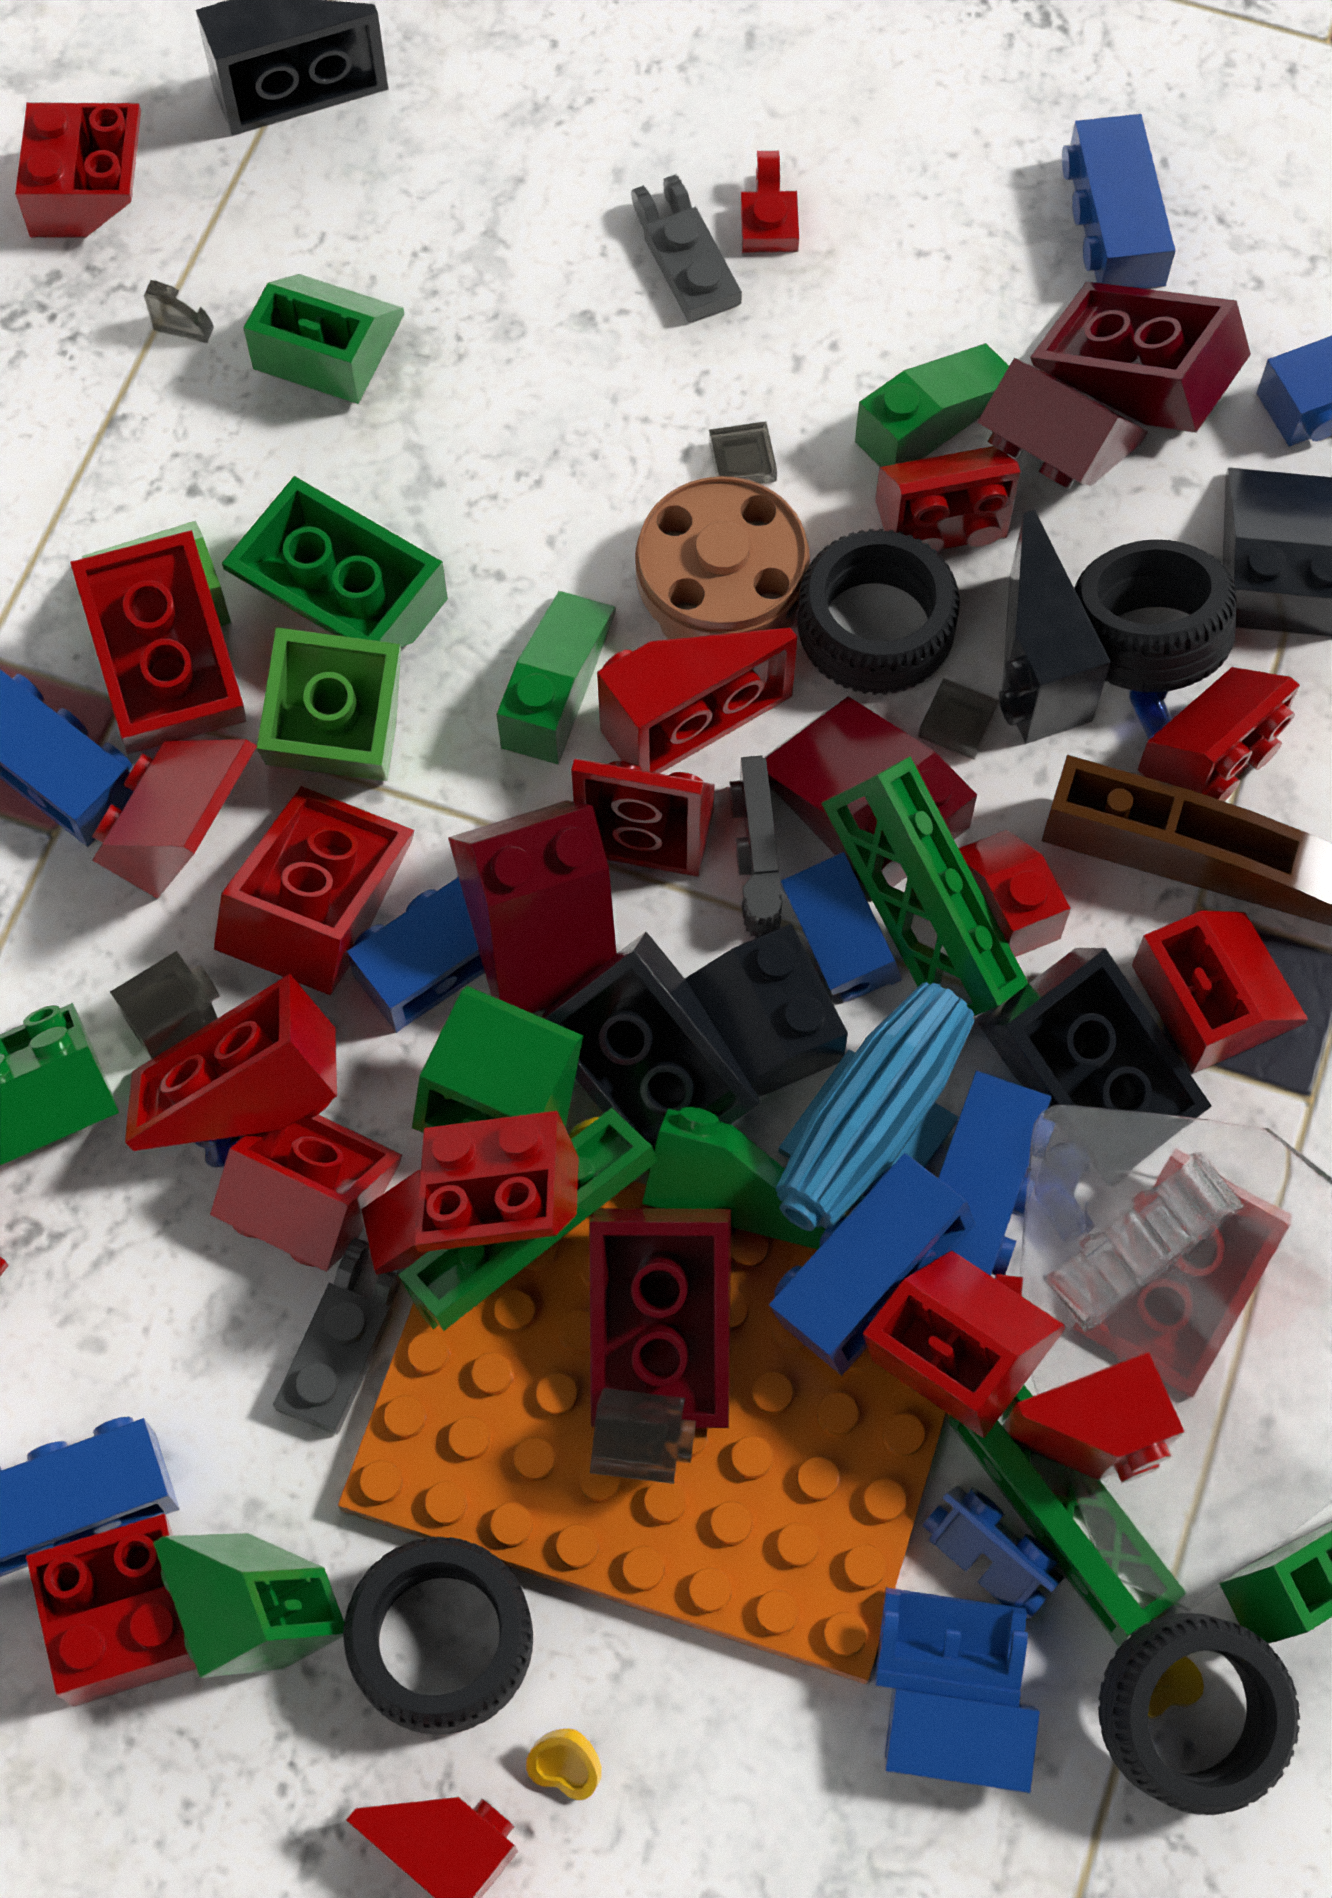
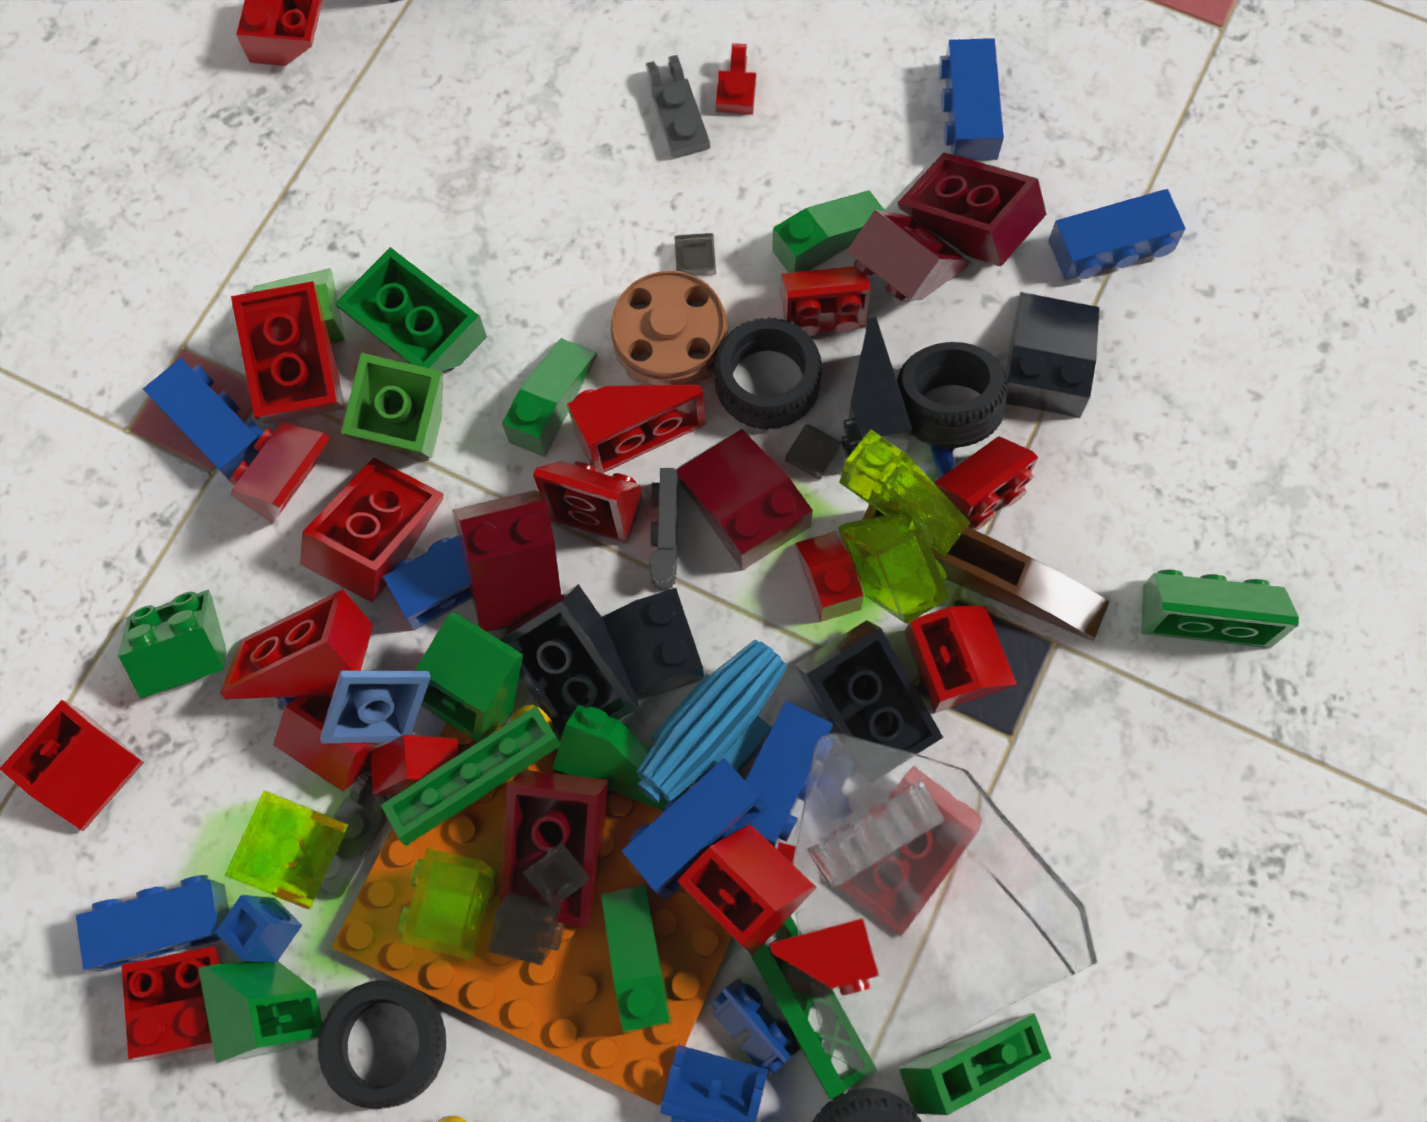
camera: 10 degrees right, 5 degrees up
(166, 1003) = (265, 598): clear smoke brick -> none
(174, 316) = (333, 126): clear smoke tile -> none
(226, 1484) = (258, 928): none -> blue brick
(256, 1363) = (286, 850): none -> clear neon green slope
(320, 335) = (426, 146): green slope -> none
(369, 1130) = (374, 706): none -> medium blue slope
(495, 1181) = (446, 755): red slope -> none
(520, 1409) = (447, 904): none -> clear neon green brick
(676, 1350) = (556, 875): none -> clear smoke tile
(810, 1469) = (635, 960): none -> green slope
(841, 928) = (712, 590): blue hinge -> none
(936, 887) = (775, 573): green fence -> none
(1109, 752) = (896, 485): none -> clear neon green slope
(1112, 857) = (896, 564): none -> clear neon green slope

